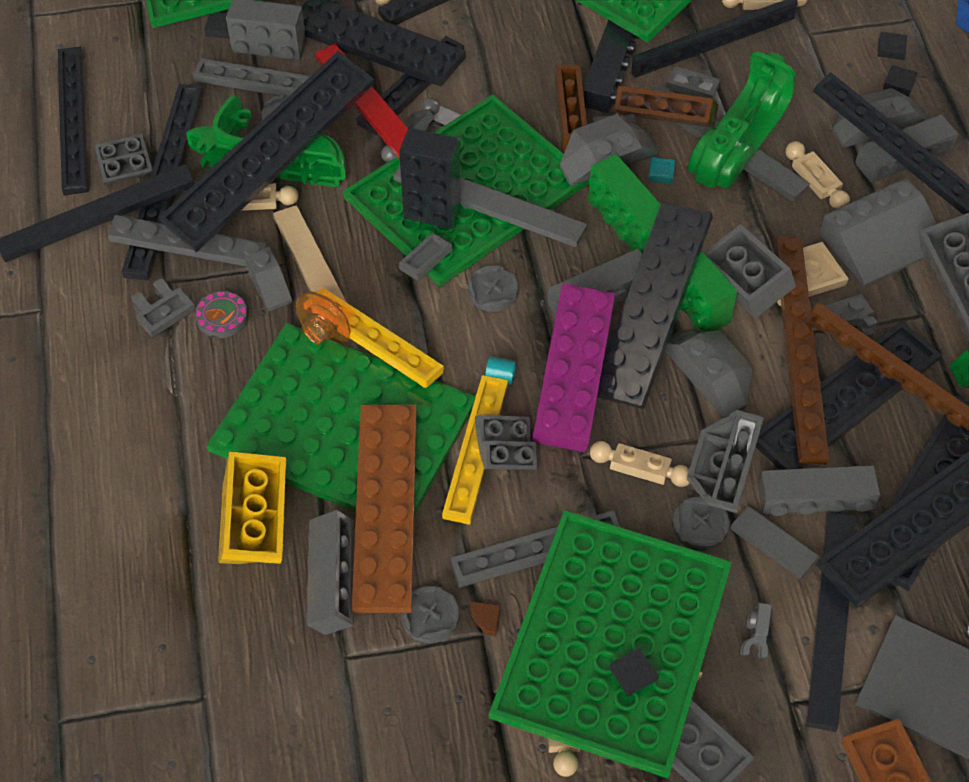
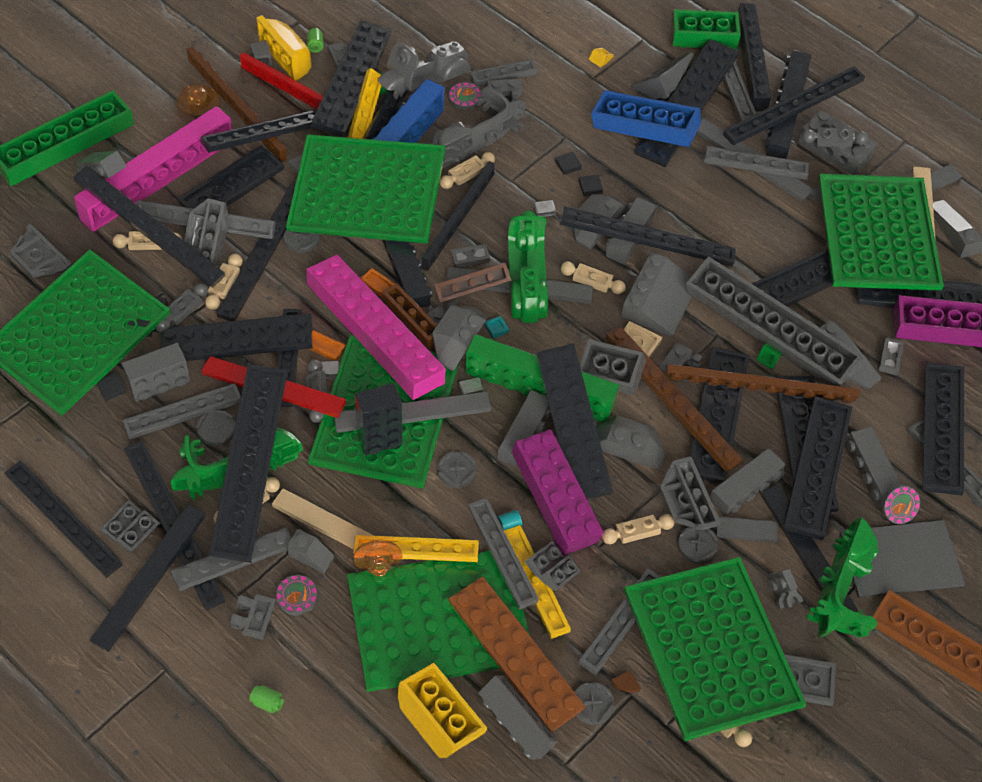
camera: 40 degrees left, 0 degrees up
(102, 393) = (266, 699): none -> bright green brick
(425, 256) = (402, 474): dark grey tile -> none
(459, 396) = (503, 554): none -> dark grey plate
(460, 93) = (327, 346): none -> orange tile
(521, 99) = (376, 327): none -> dark pink brick
(569, 56) = (376, 281): none -> orange tile
(581, 213) = (471, 386): none -> flat silver piece
(633, 672) = (743, 658): black piece -> none
(818, 75) = (545, 208): none -> flat silver piece
(875, 651) = (852, 558): none -> green piece

